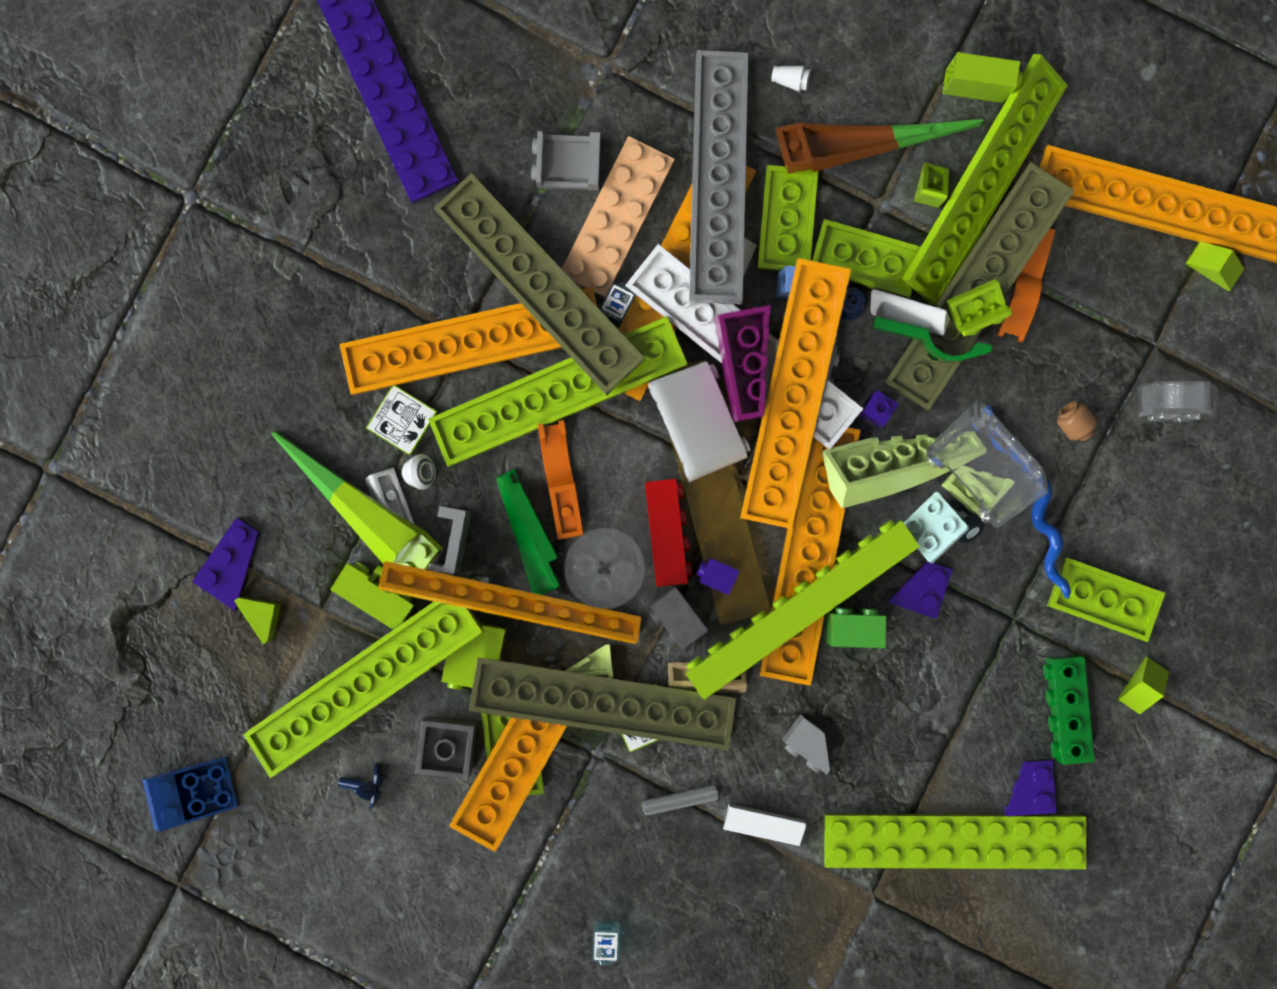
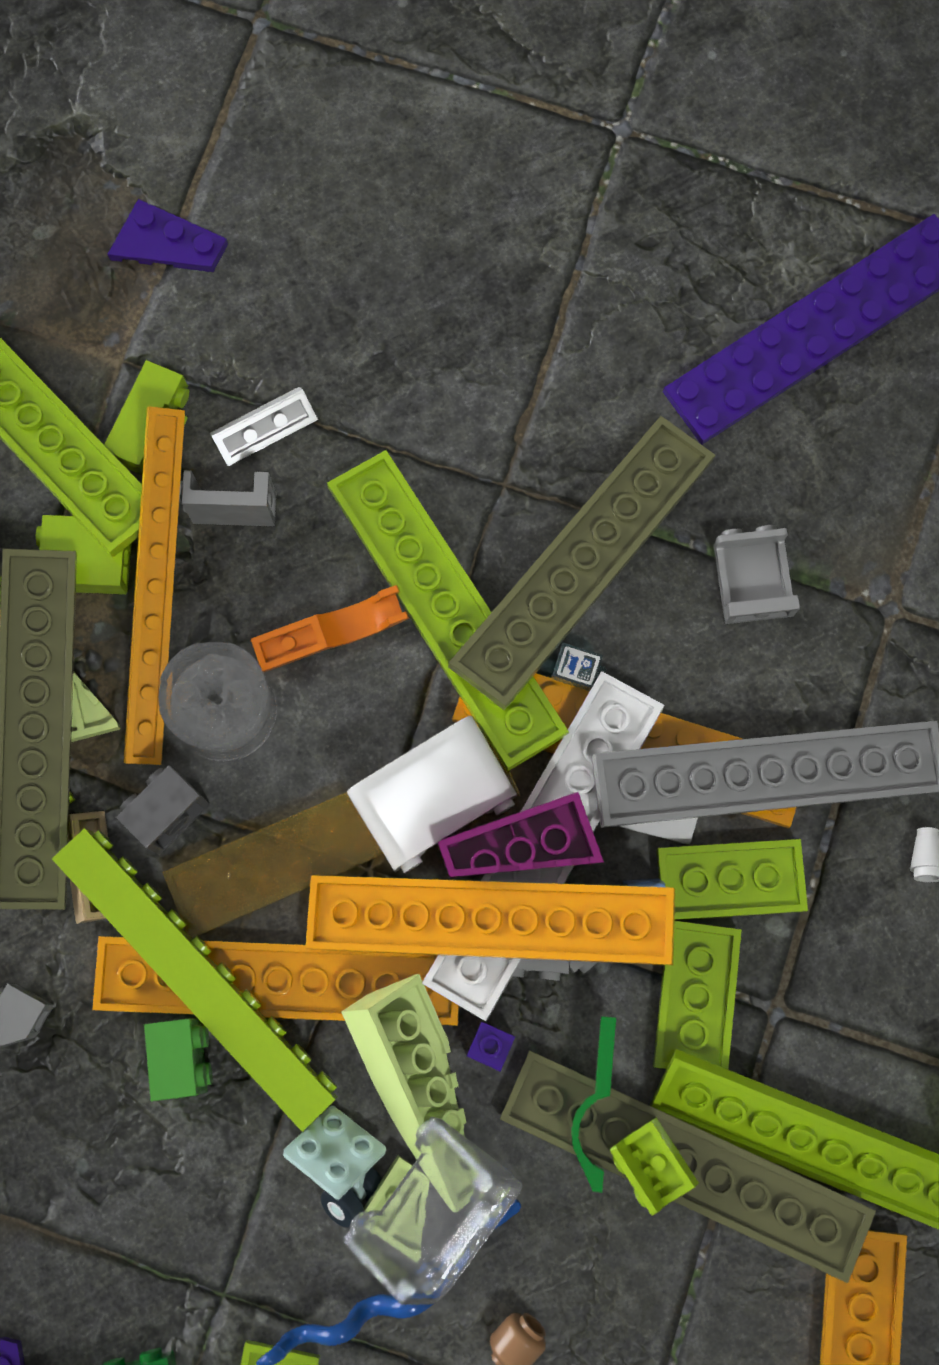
camera: 80 degrees right, 10 degrees down
(261, 616) = (103, 285): lime slope -> none
(380, 528) = (224, 427): lime plate -> none
(401, 420) = (380, 419): white tile -> none
(419, 472) = (315, 450): white cone -> none
(445, 347) = (483, 459): light orange plate -> none
(529, 534) = (254, 604): green wedge -> none
(617, 216) = (694, 652): light nougat plate -> none
(666, 532) = (277, 779): red brick -> none
(717, 575) = (226, 854): dark purple brick -> none
(825, 146) = (844, 921): dark orange plate -> none
(853, 311) = (625, 976): dark blue cone -> none
(909, 312) = (631, 1069): white slope -> none
(924, 590) = (245, 1153): dark purple wing -> none
(932, 185) = (818, 1076): lime slope -> none
(1027, 291) = (695, 1238): orange piece -> none

